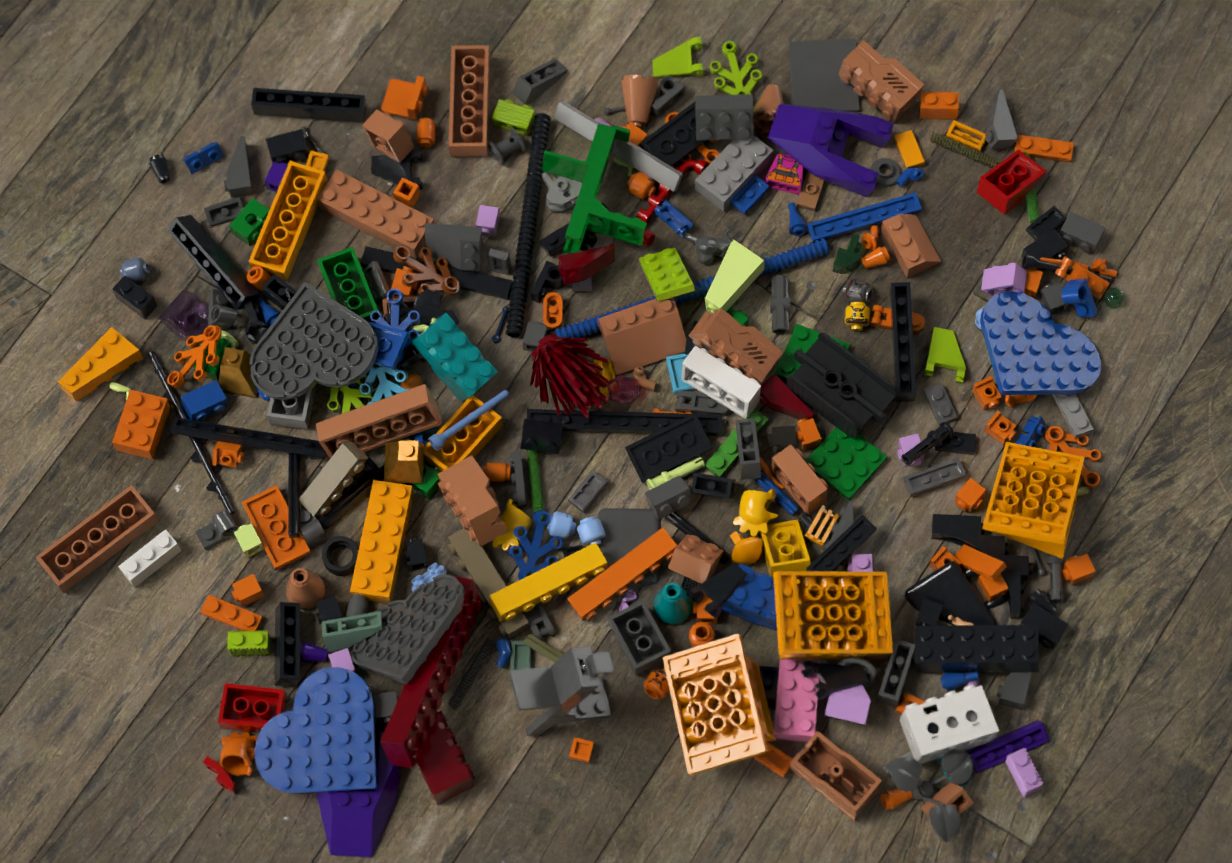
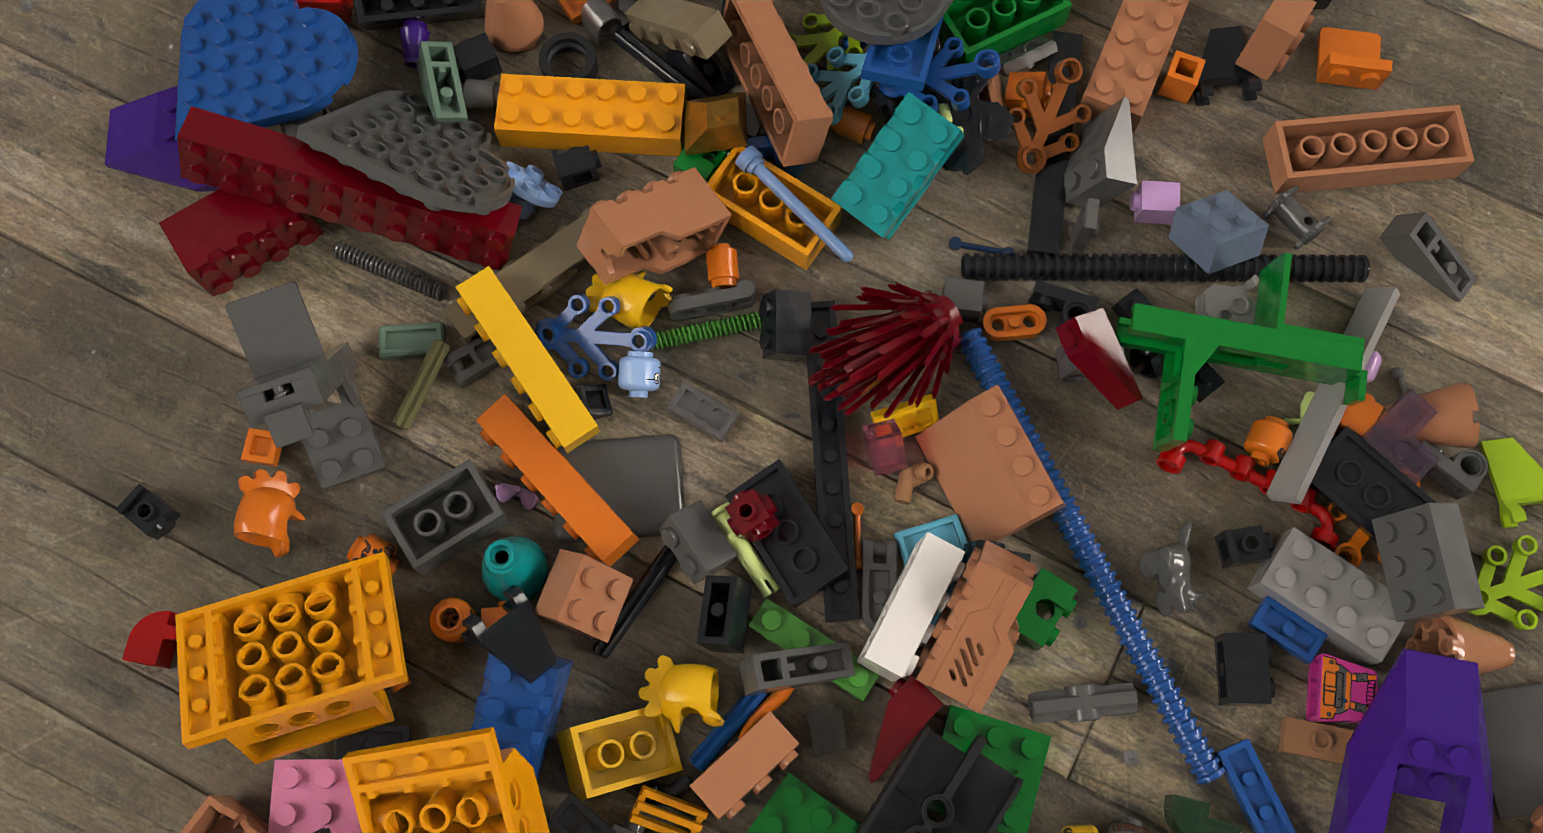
camera: 80 degrees right, 5 degrees up
(342, 659) = (389, 77): lavender brick -> none
(426, 132) = (1295, 95): orange brick -> none
(504, 651) = (423, 313): blue arm -> none
(510, 115) = (1353, 222): lime brick -> none
(513, 189) = (1218, 231): none -> sand blue brick
(591, 531) = (629, 422): light blue head -> none
(616, 824) = (145, 501): none -> black brick
(625, 743) = (265, 511): none -> orange piece
(648, 119) = (1395, 432): none -> plate
(658, 469) = (762, 516): none -> dark red brick
(666, 274) = (1102, 495): lime plate -> none
(673, 218) = (1215, 503): blue hinge -> none
(695, 811) = (152, 640): none -> red brick
(703, 213) = (1233, 548): none -> black brick
(733, 277) = (1114, 611): yellowish green slope -> none
(746, 549) = (611, 682): light orange piece -> none
(769, 220) = (1243, 669): none -> black brick
(775, 760) = (239, 776): orange plate -> none
(796, 223) = (1245, 720): blue cone -> none
(808, 434) = (841, 774): orange brick -> none

